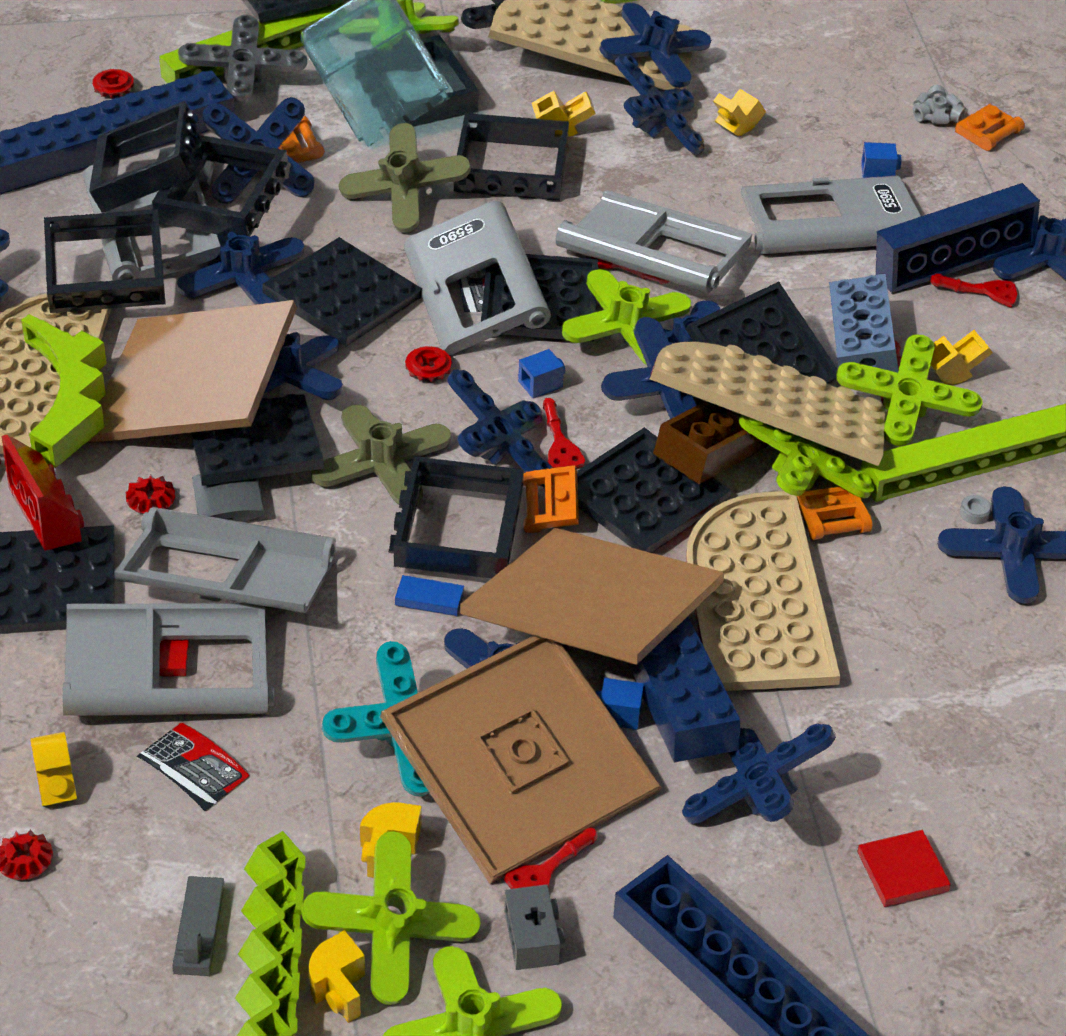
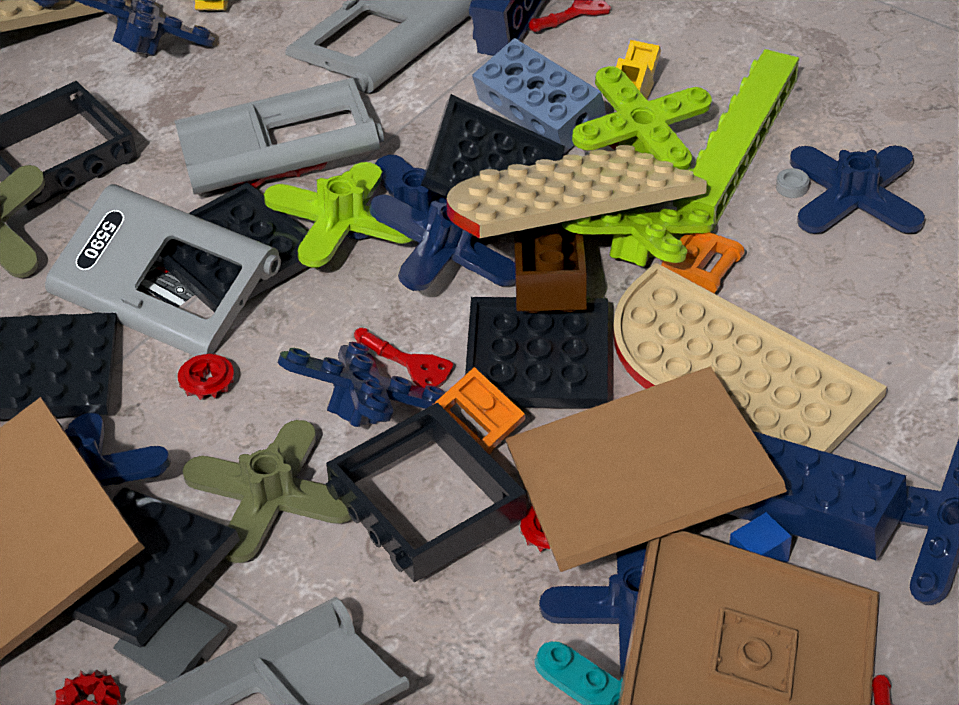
camera: 40 degrees left, 0 degrees up
(429, 595) = (474, 584): blue tile -> none
(541, 373) = (322, 313): blue brick -> none
(574, 111) = (66, 68): yellow brick -> none

